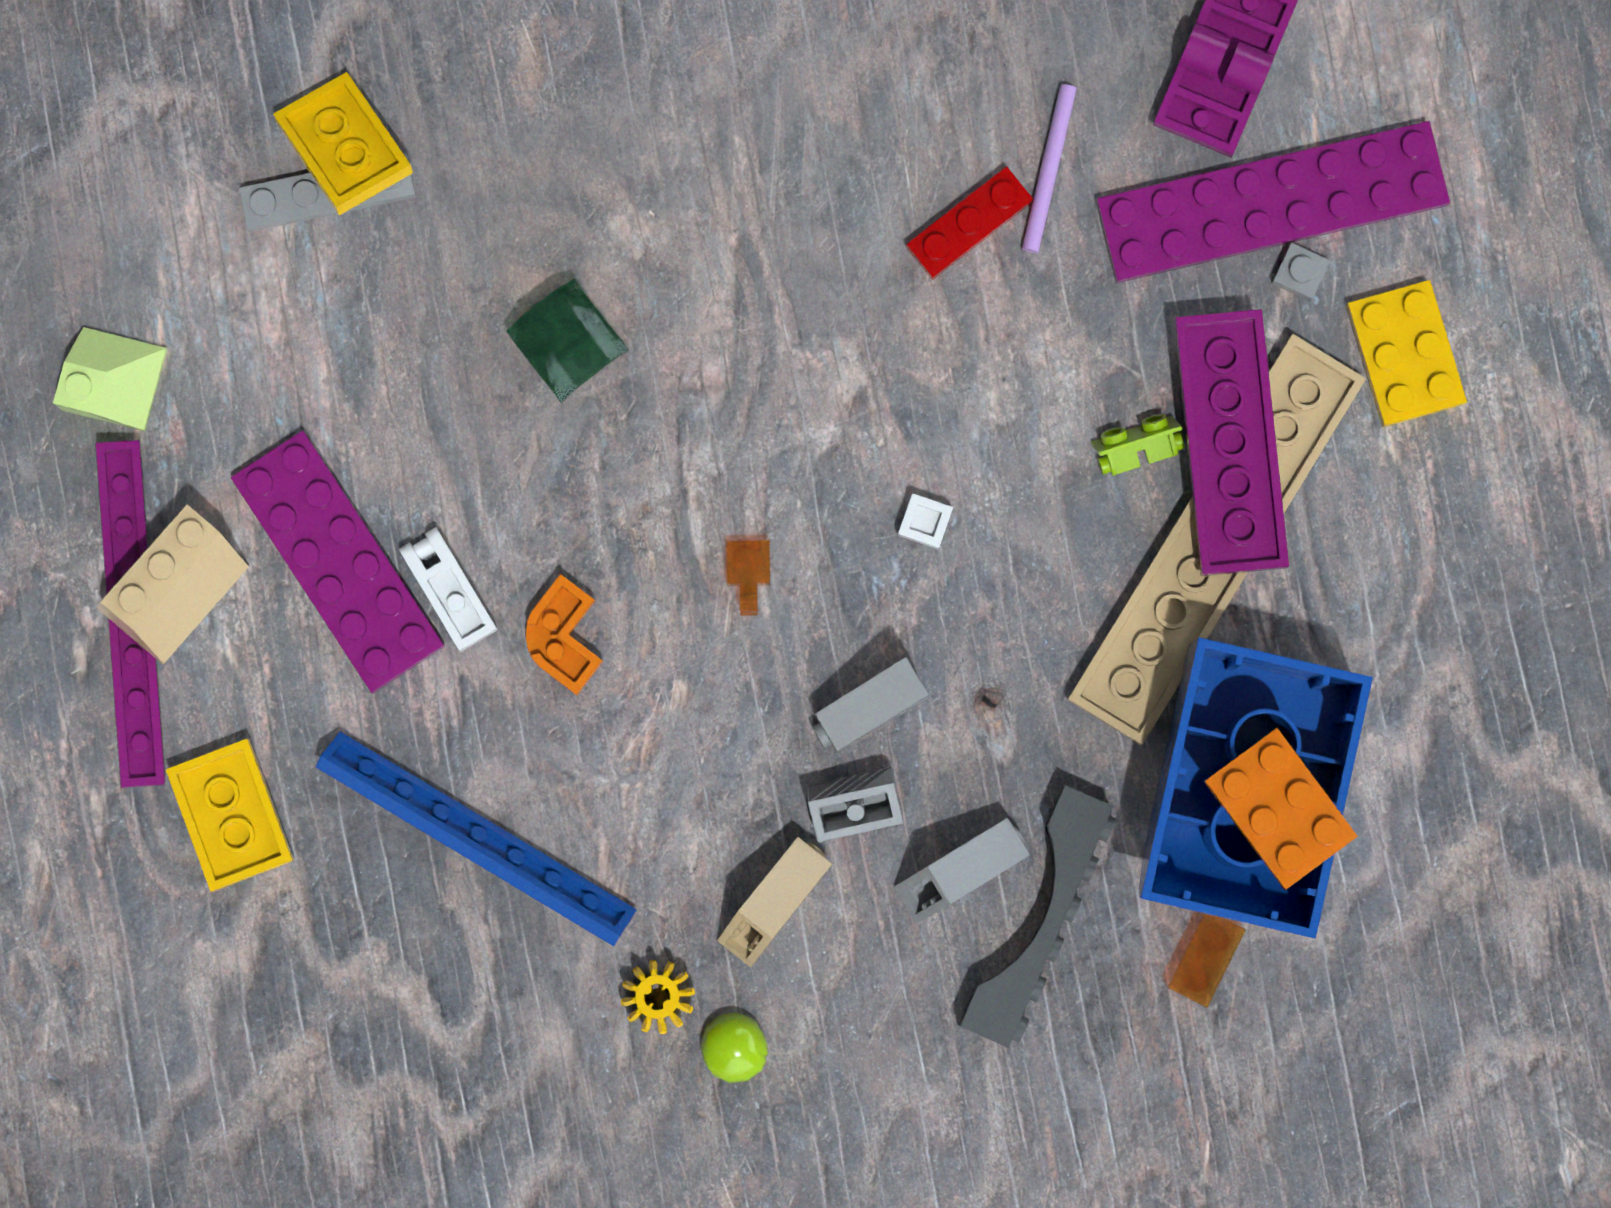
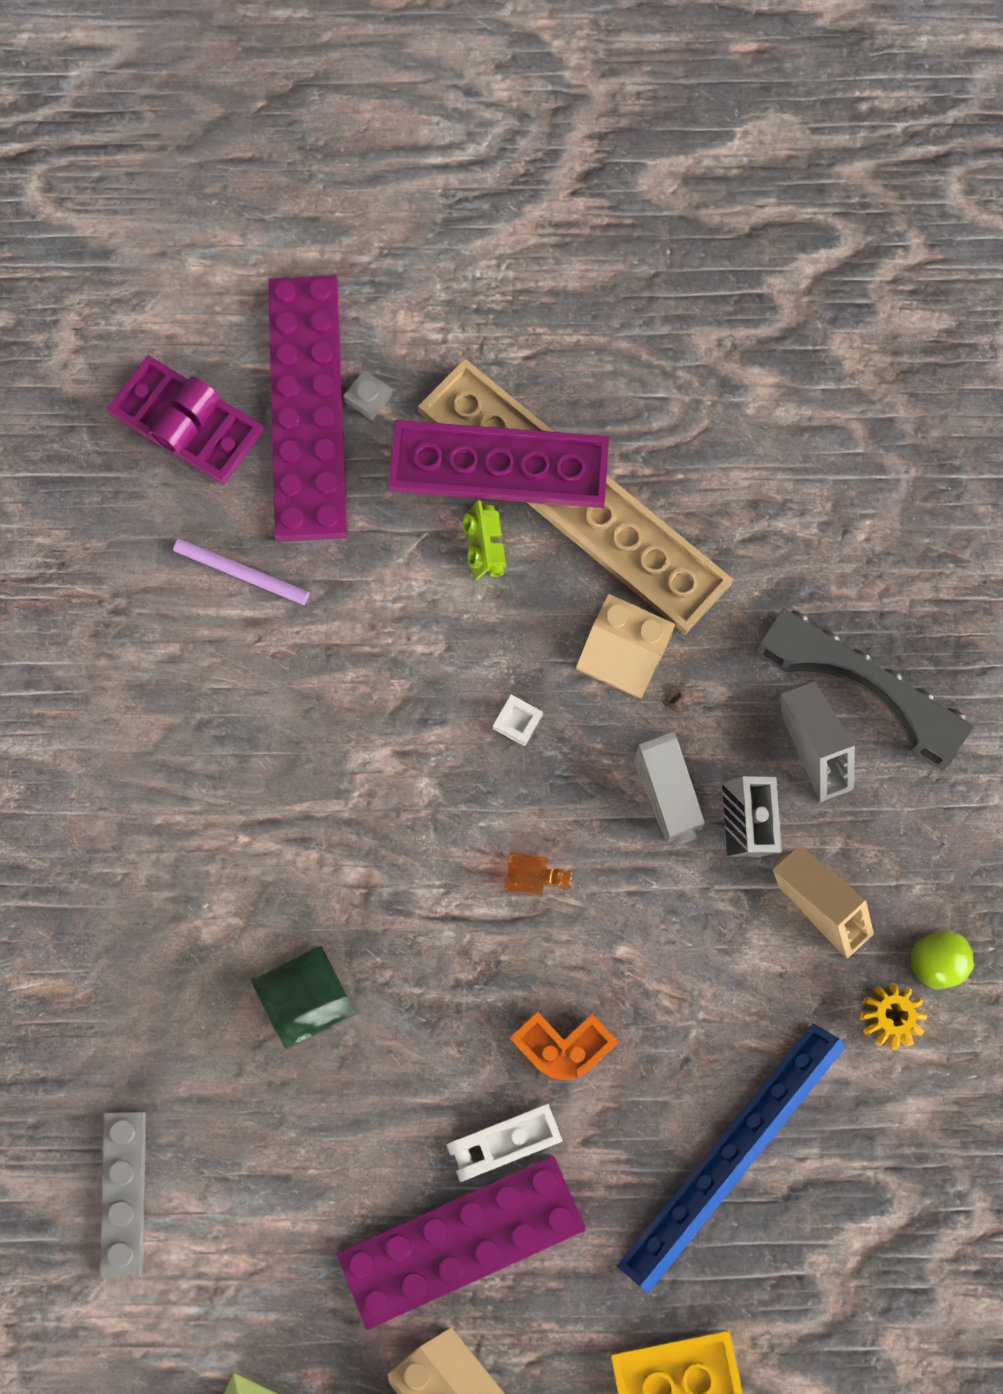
camera: 80 degrees left, 10 degrees down
(343, 143) = (82, 1169): yellow plate -> none
(969, 223) = (273, 643): red plate -> none
(1035, 630) = (625, 646): none -> tan slope
(1206, 959) = (914, 562): clear orange plate -> none
(1221, 709) = (791, 489): blue brick -> none
(1280, 809) = (819, 458): orange plate -> none
(1406, 353) = (449, 330): yellow plate -> none

